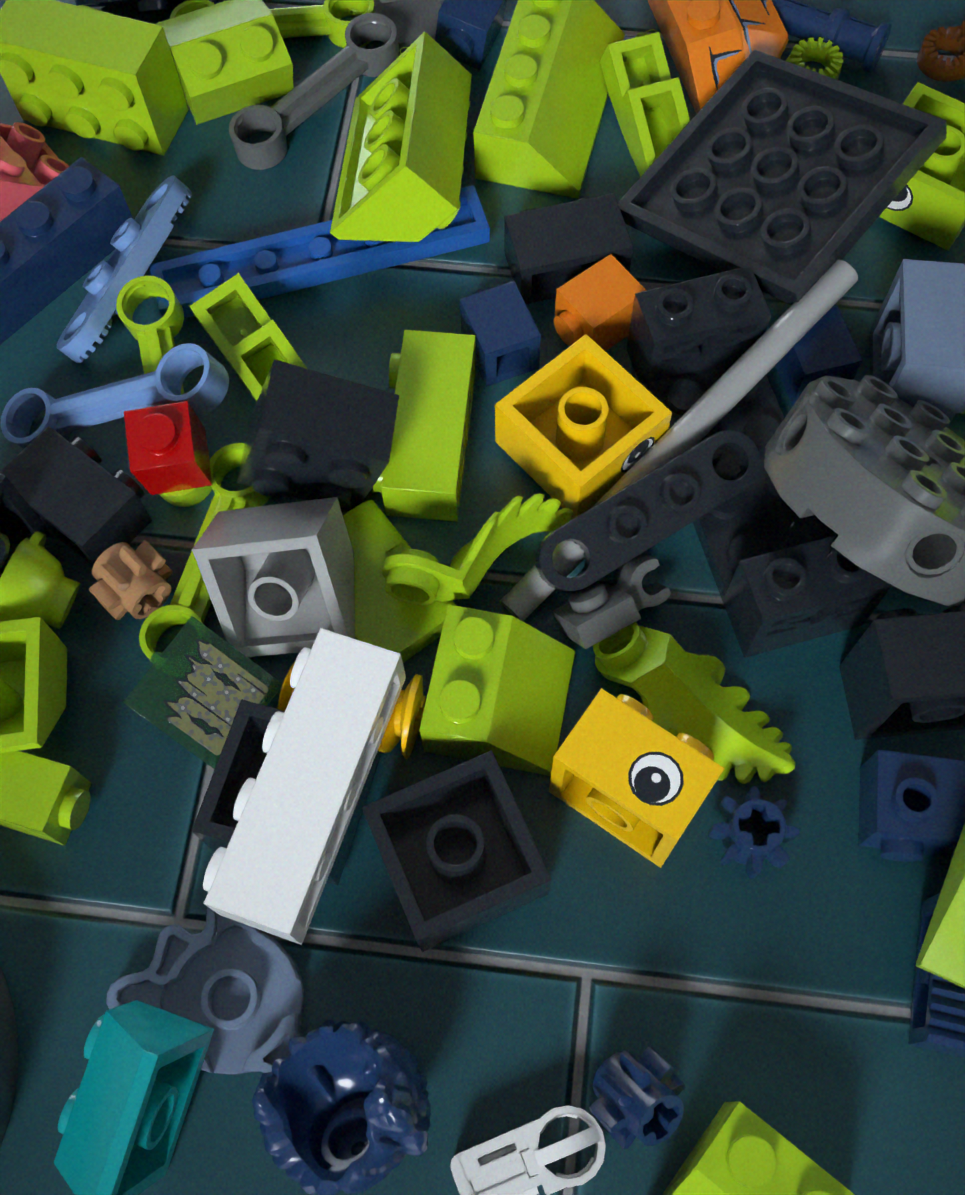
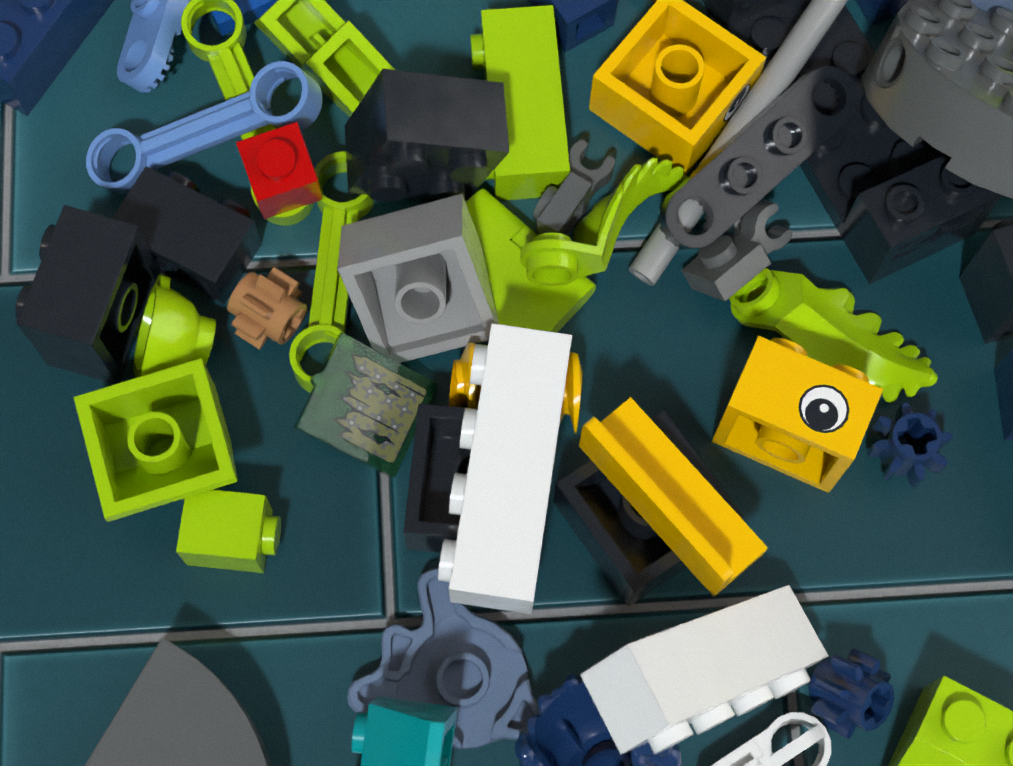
camera: 15 degrees left, 5 degrees up
(451, 527) = (564, 207): none -> dark grey plate
(460, 1043) = (702, 668): none -> white brick
(477, 845) = (671, 496): none -> yellow panel
(496, 691) = (650, 348): lime slope -> none

